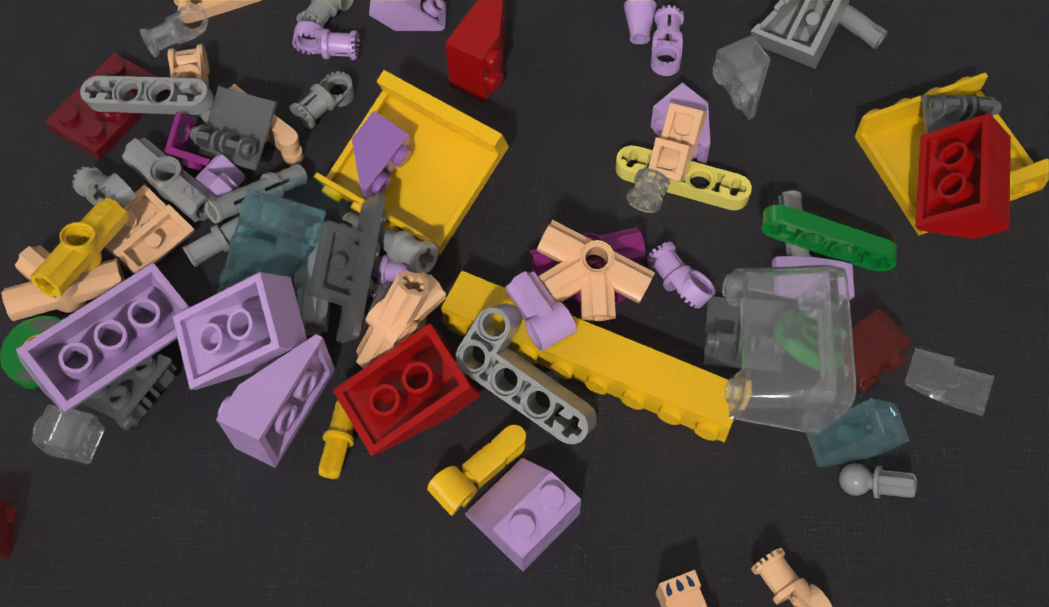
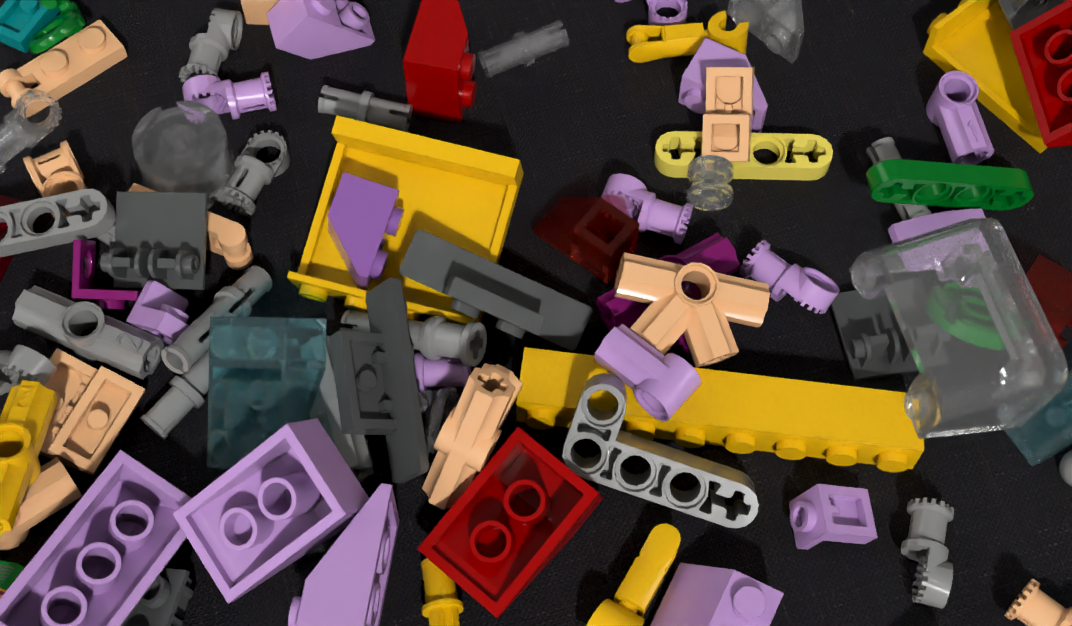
camera: 20 degrees left, 0 degrees up
(277, 71) = (183, 150): none -> clear brick
(417, 74) = (365, 108): none -> light grey pin
(456, 226) = (490, 288): none -> dark grey bracket
(543, 200) = (590, 233): none -> clear red slope
(548, 59) = (523, 48): none -> clear pin
(586, 188) = (645, 208): none -> lavender connector
(647, 457) = (832, 515): none -> lavender bracket
(663, 80) = (667, 41): none -> yellow piece
(710, 501) = (927, 547): none -> light grey connector
(860, 194) = (960, 118): none -> lavender piece

